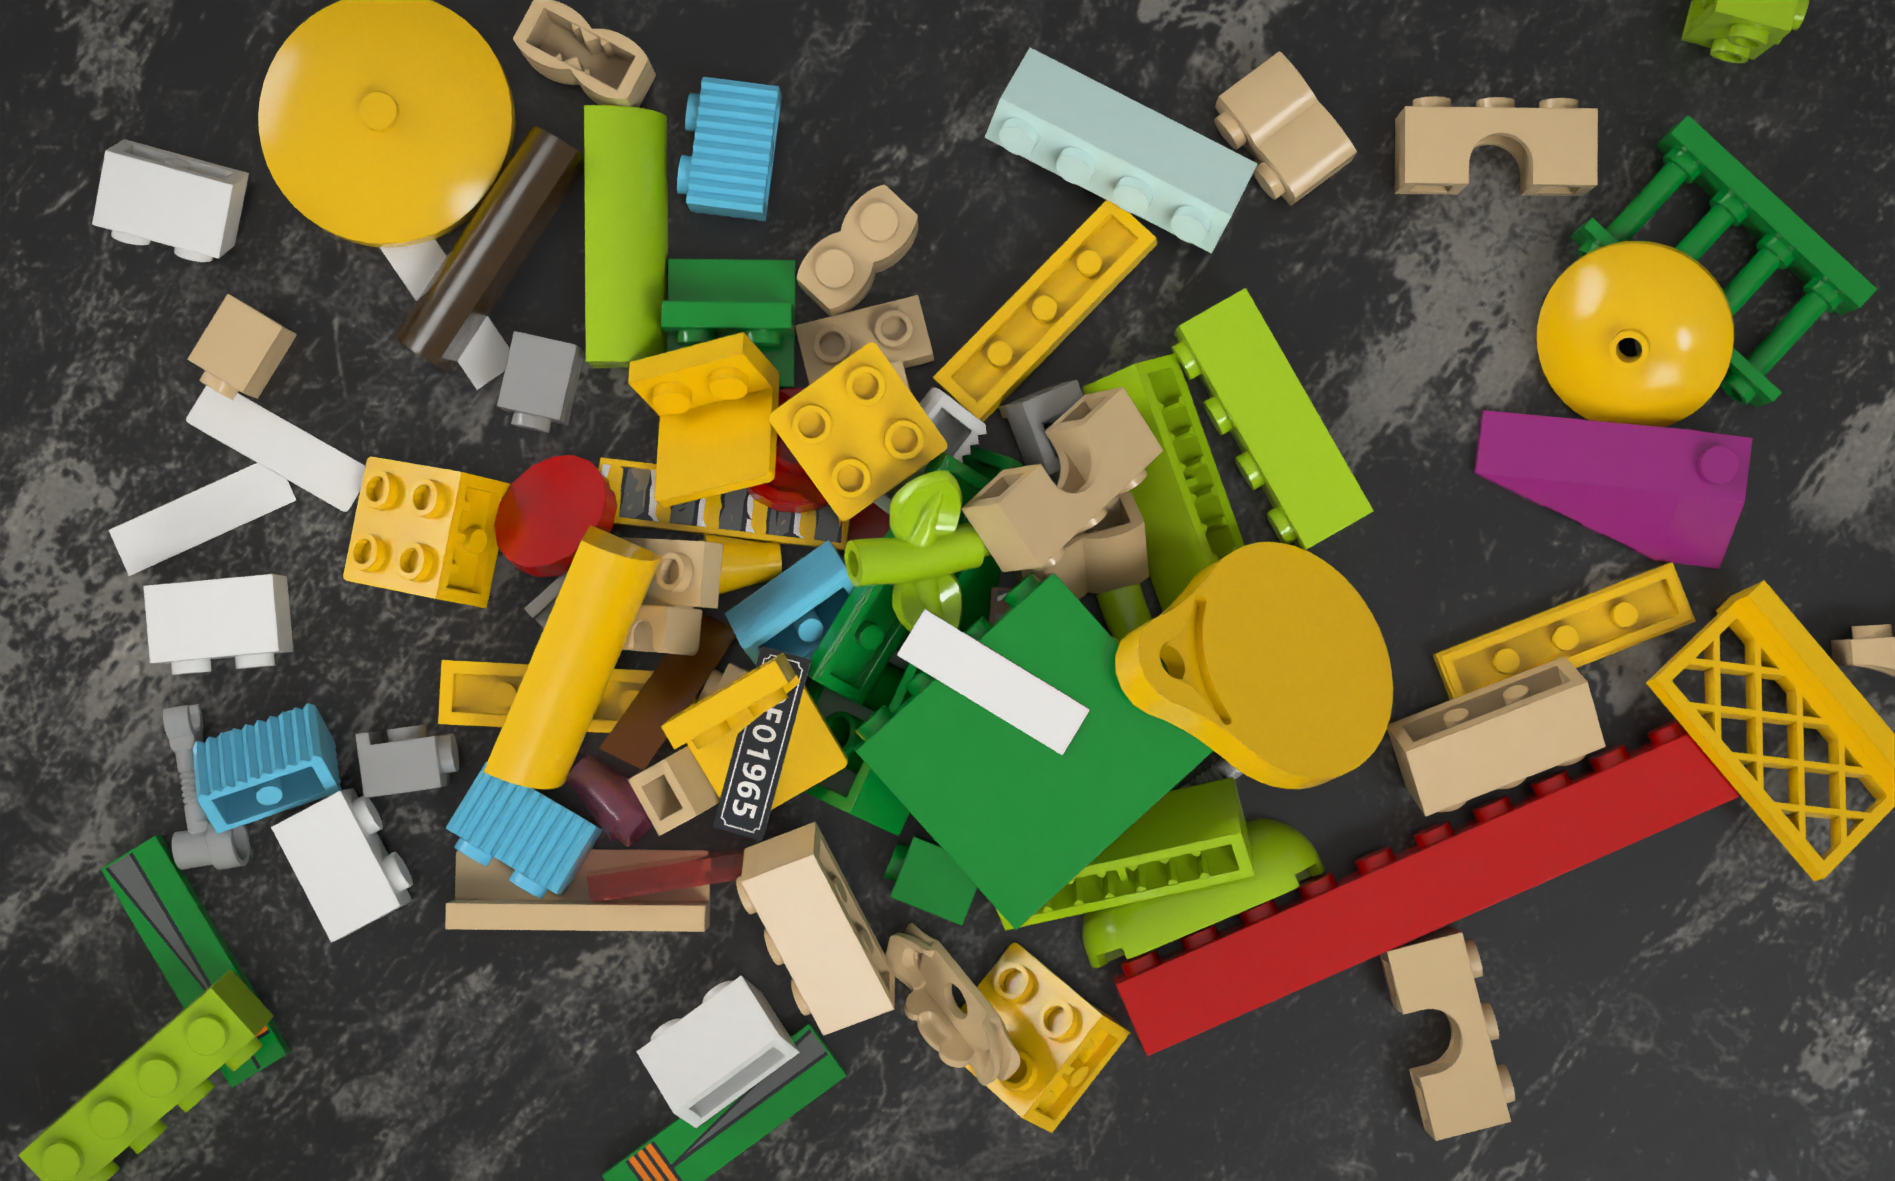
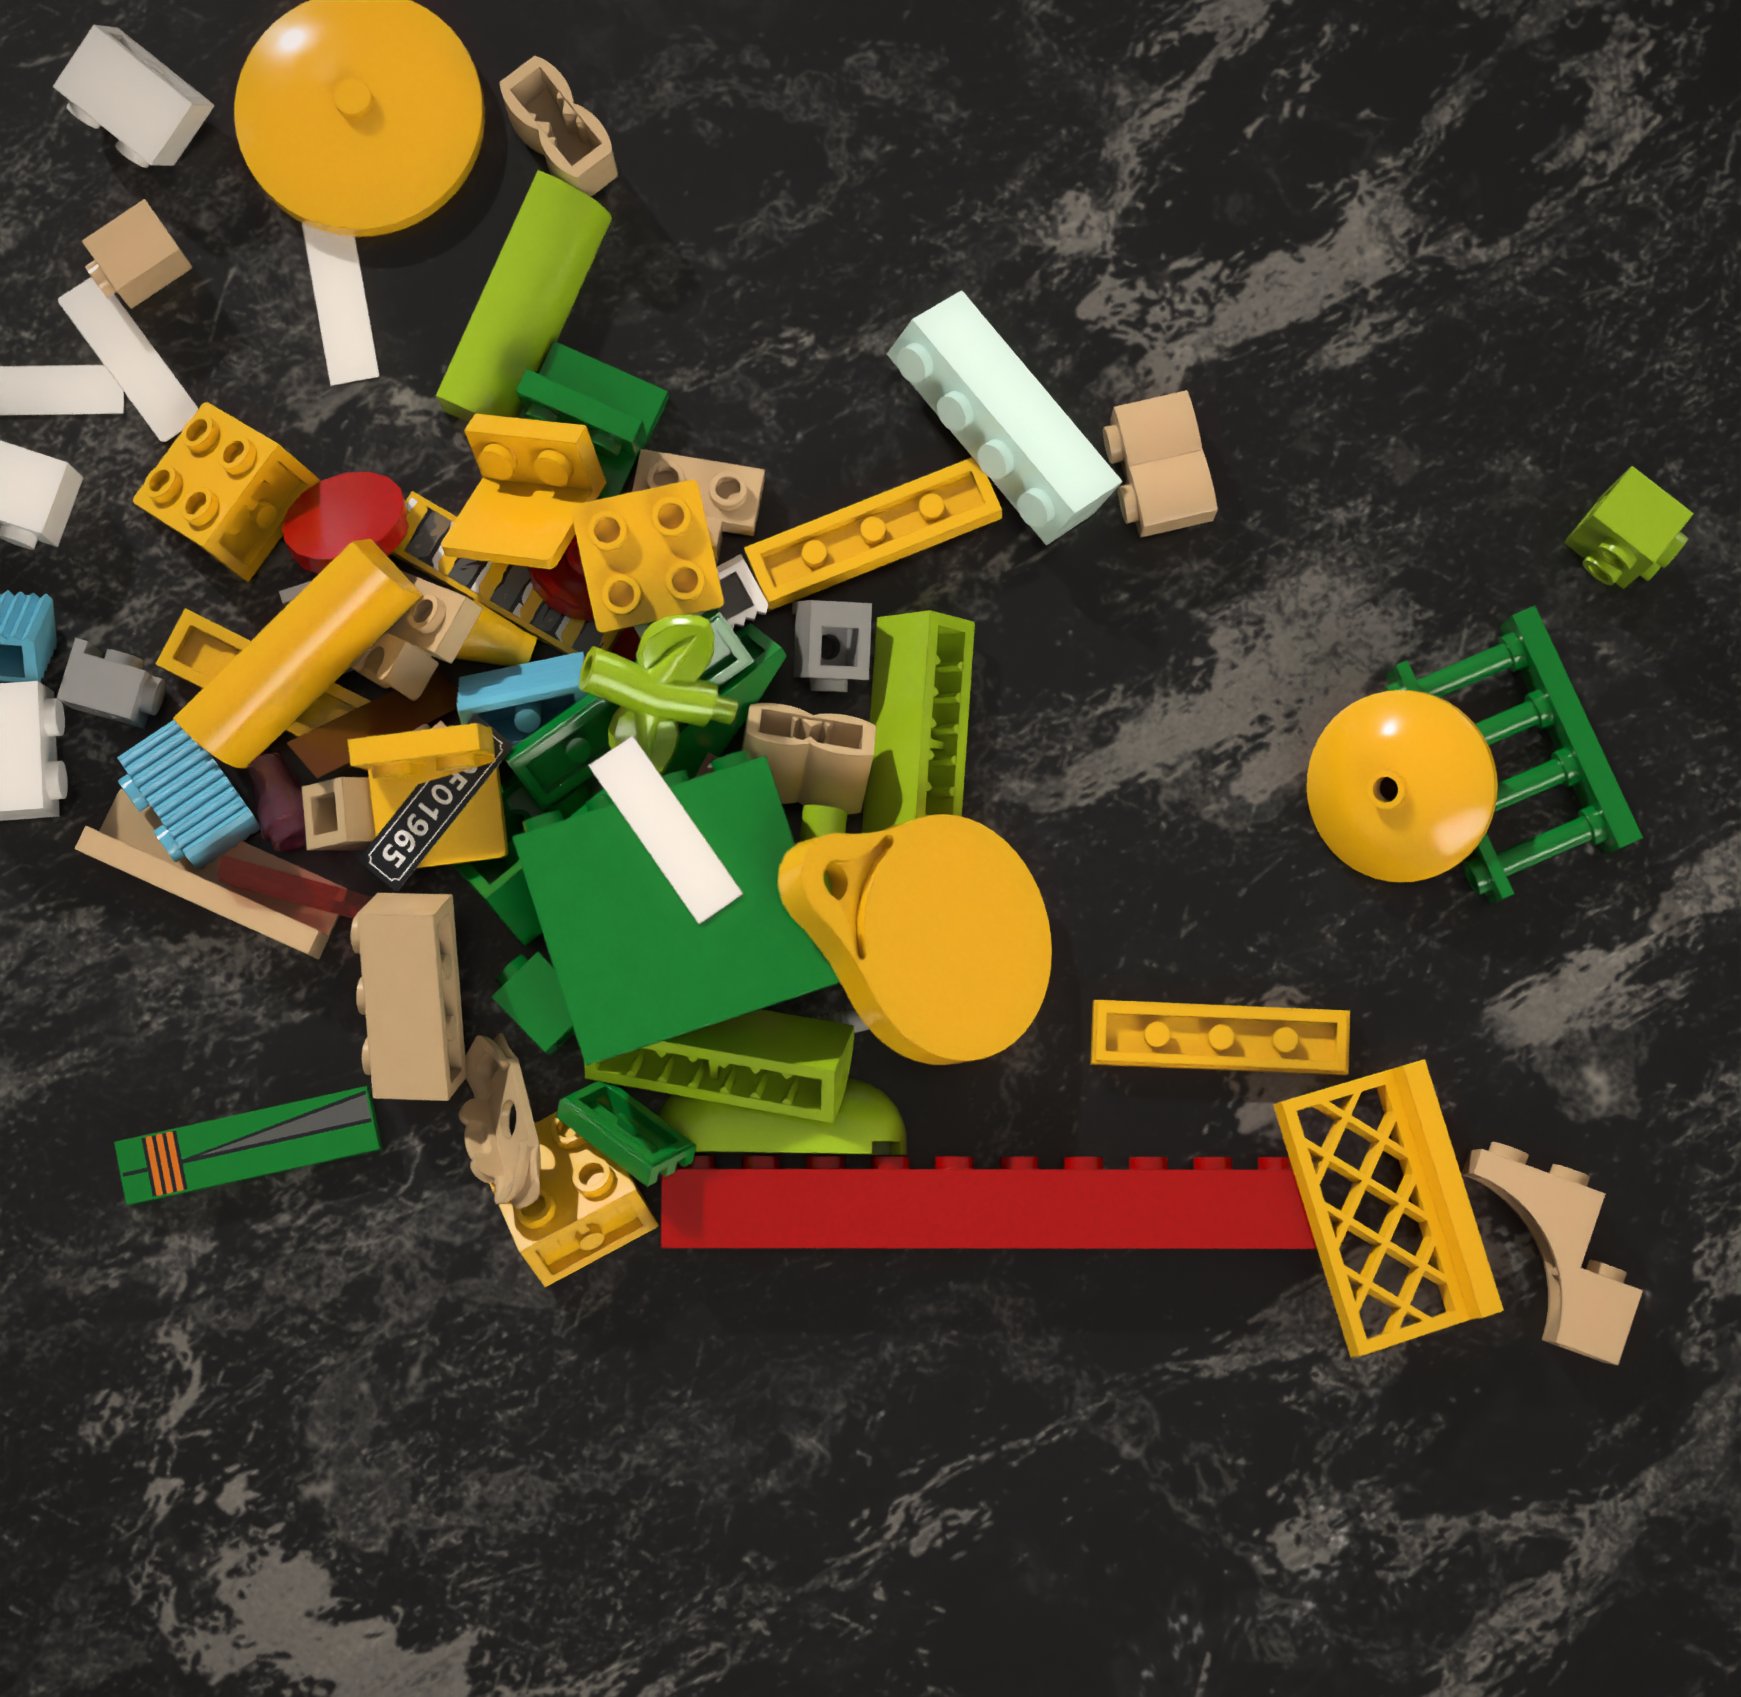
camera: 25 degrees right, 5 degrees down
(491, 248) = (399, 265): dark brown brick -> none
(540, 381) = (388, 399): light grey brick -> none
(717, 1051) = (270, 1071): white piece -> none
(731, 148) = (654, 267): medium azure brick -> none
(871, 239) = (742, 401): tan brick -> none
(1063, 972) = (626, 1131): none -> green tile
(1101, 454) = (862, 674): tan arch -> none
(1271, 422) = (1034, 720): lime brick -> none
(1465, 1085) = (948, 1411): tan arch -> none
(1496, 736) = (1115, 1097): tan brick -> none
(1550, 143) = (1399, 576): tan arch -> none
(1642, 485) = (1348, 924): magenta wedge -> none

